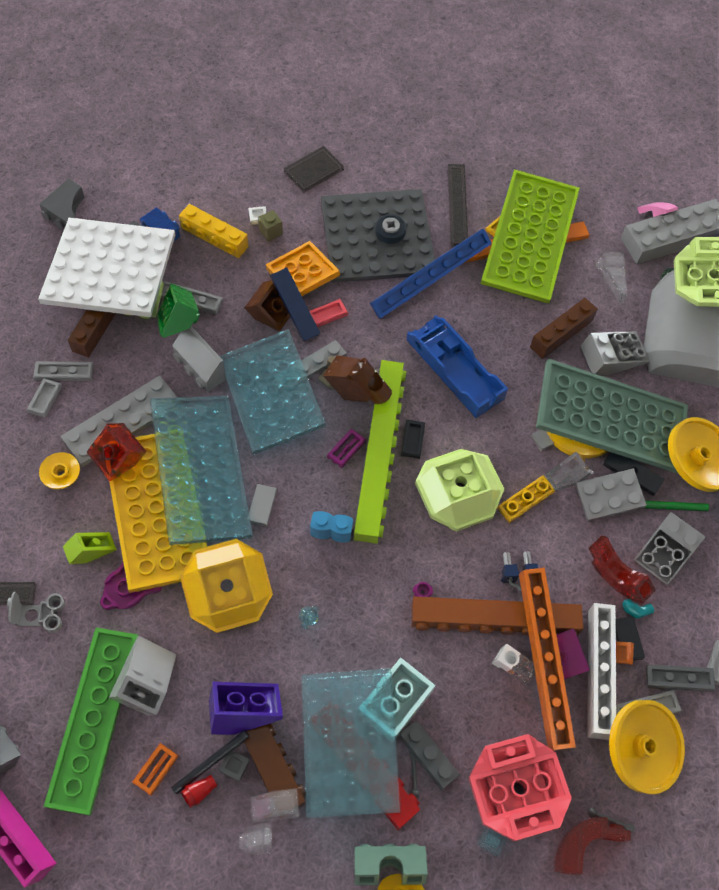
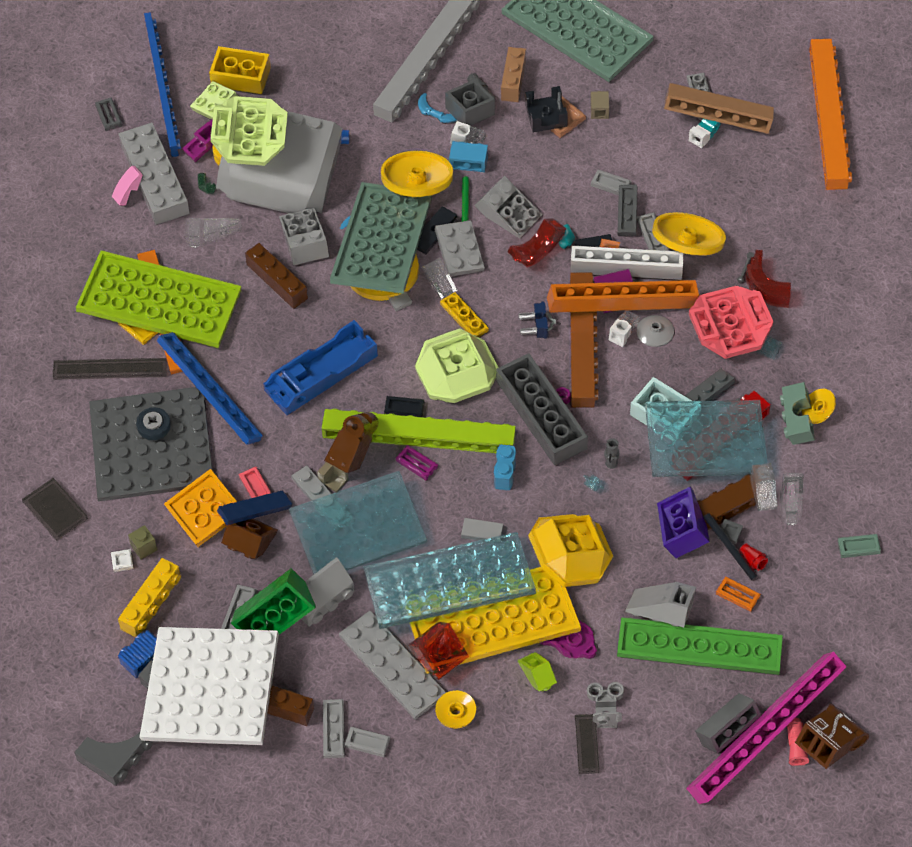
camera: 85 degrees left, 5 degrees down
(338, 634) = (611, 453): none -> dark grey pin
(401, 565) = (541, 409): none -> dark grey brick
(507, 709) = (655, 337): none -> light grey dish

